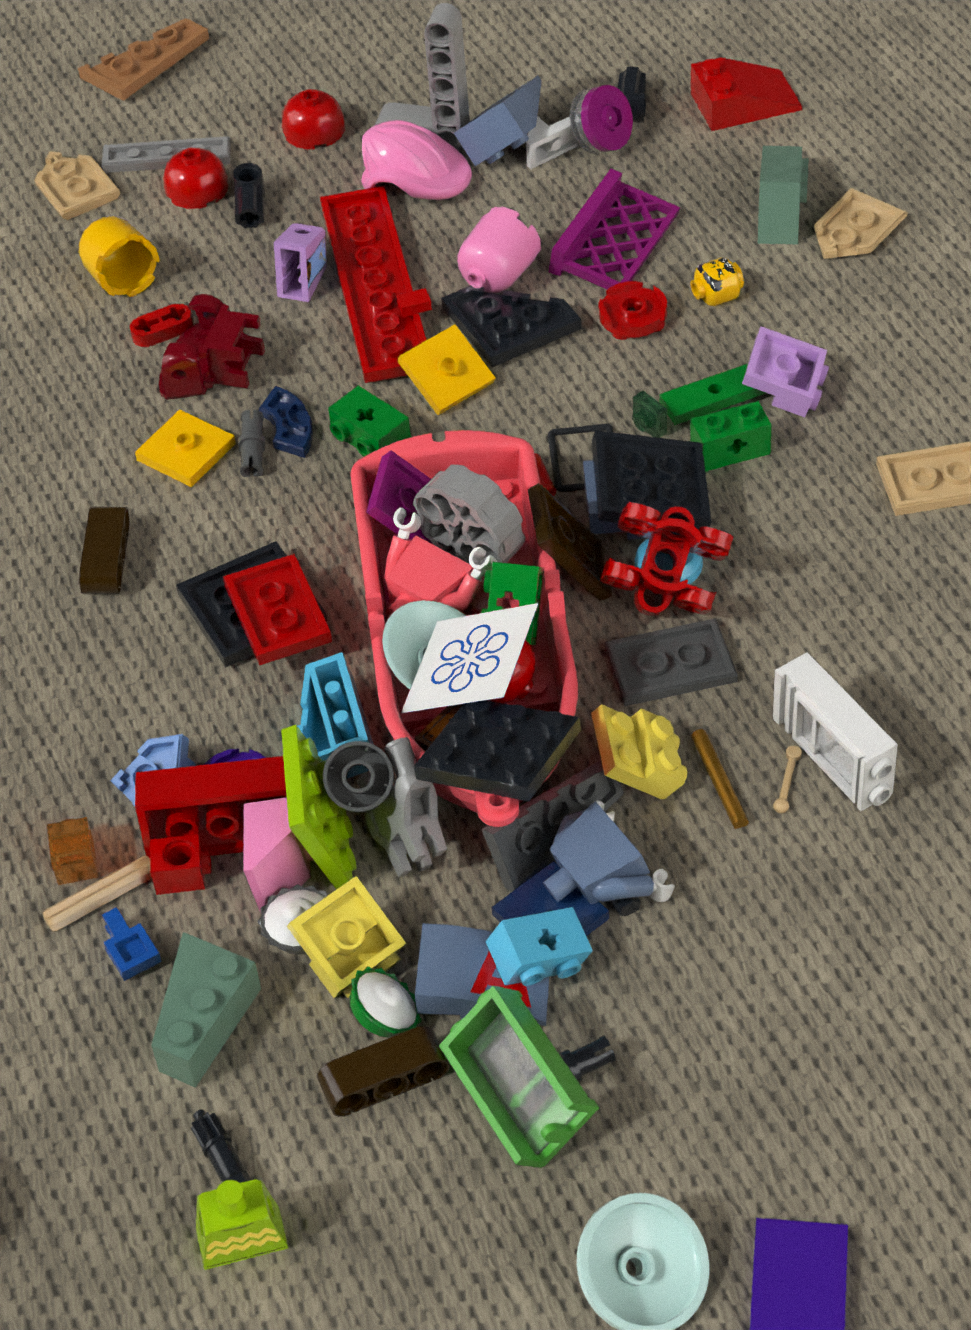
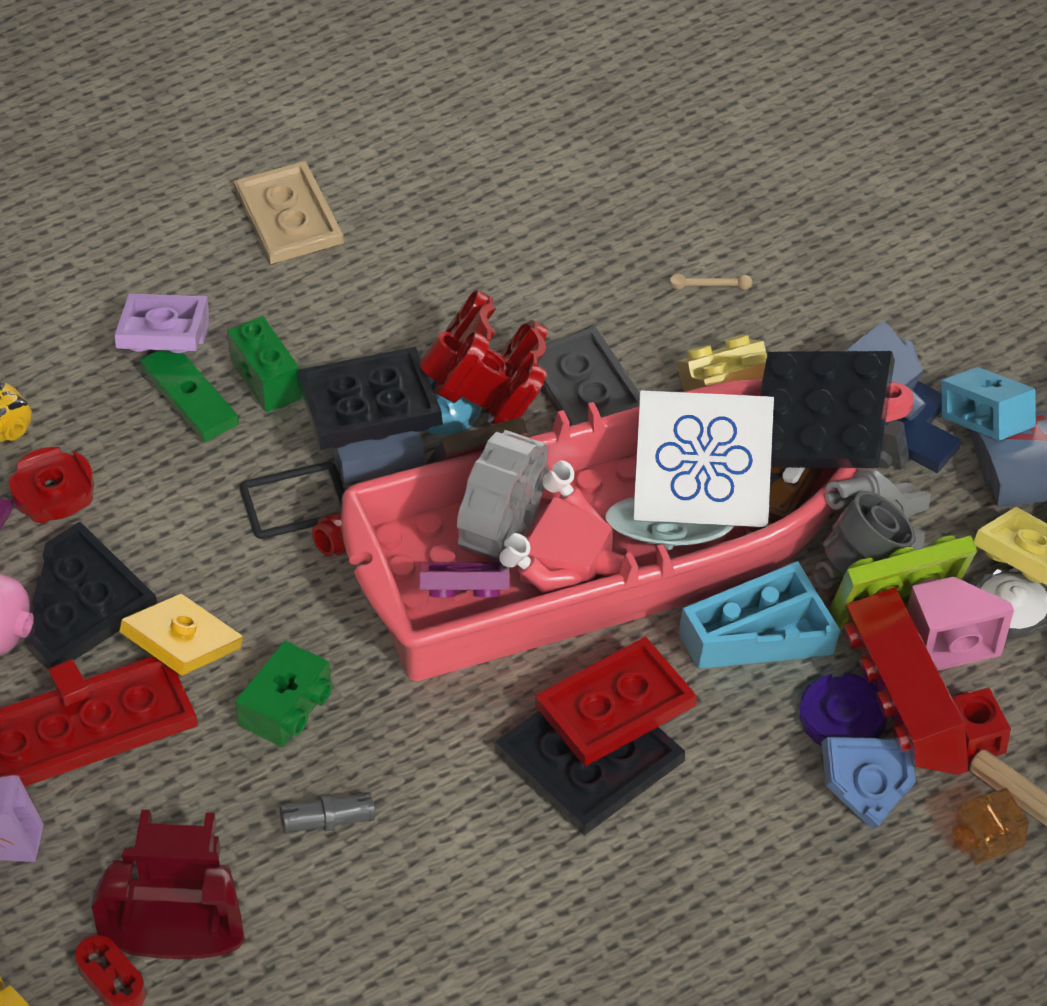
camera: 105 degrees left, 0 degrees up
(104, 550) = (537, 920): dark brown beam -> none
(185, 448) = (337, 889): yellow plate -> none
(290, 420) = (286, 783): dark blue tile -> none
(525, 584) = (590, 449): green brick -> none
(649, 415) = (235, 439): clear green plate -> none
(719, 779) = (726, 327): pearl gold bar -> none
(835, 731) = (673, 228): white door -> none

